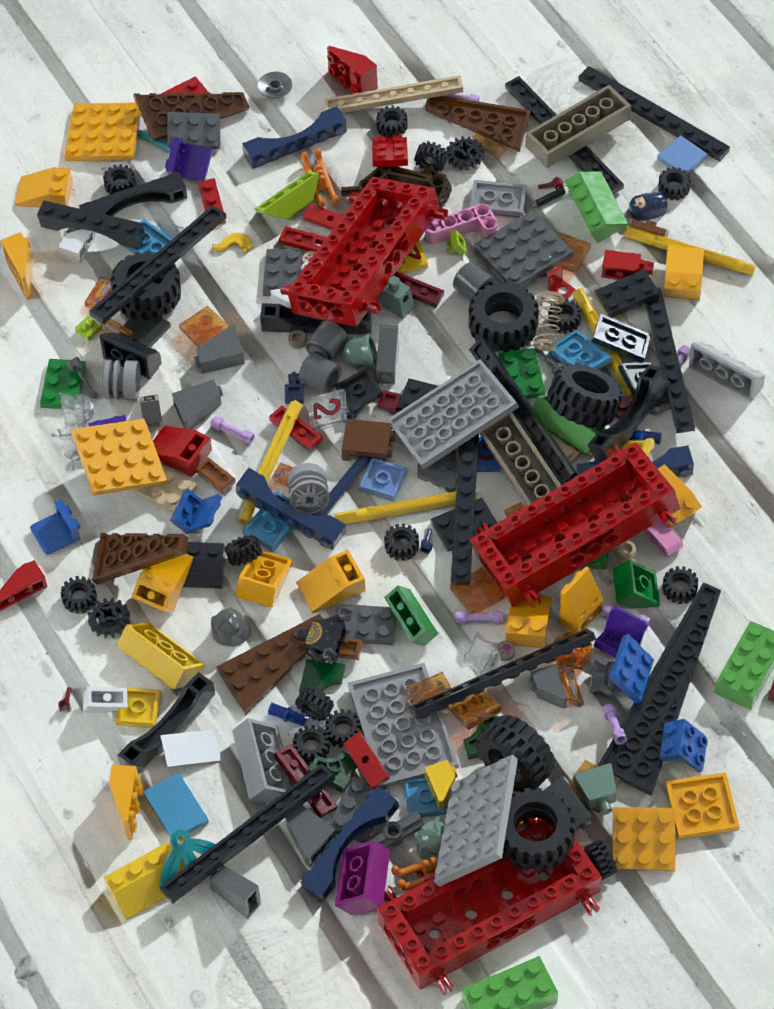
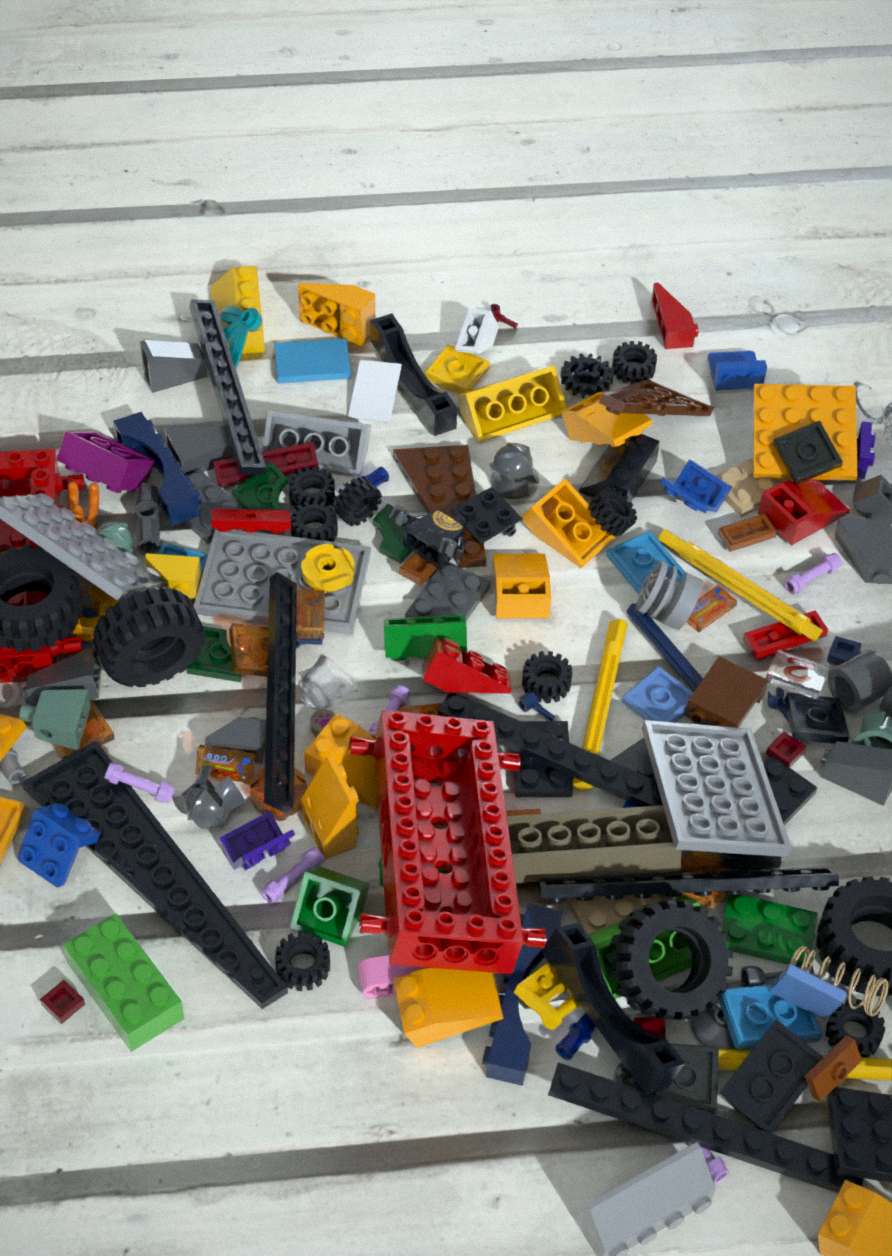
camera: 110 degrees right, 5 degrees down
(142, 446) = (807, 452): none -> pearl dark grey tile
(282, 624) = (488, 515): none -> black hinge
(324, 528) = (690, 544): dark blue arch -> none
(389, 703) = (328, 580): none -> yellow plate
(431, 580) = (463, 671): none -> red slope
(566, 330) = (808, 992): none -> medium blue tile
(602, 308) = (833, 1068): none -> dark orange plate
(631, 668) = (198, 825): blue plate -> none

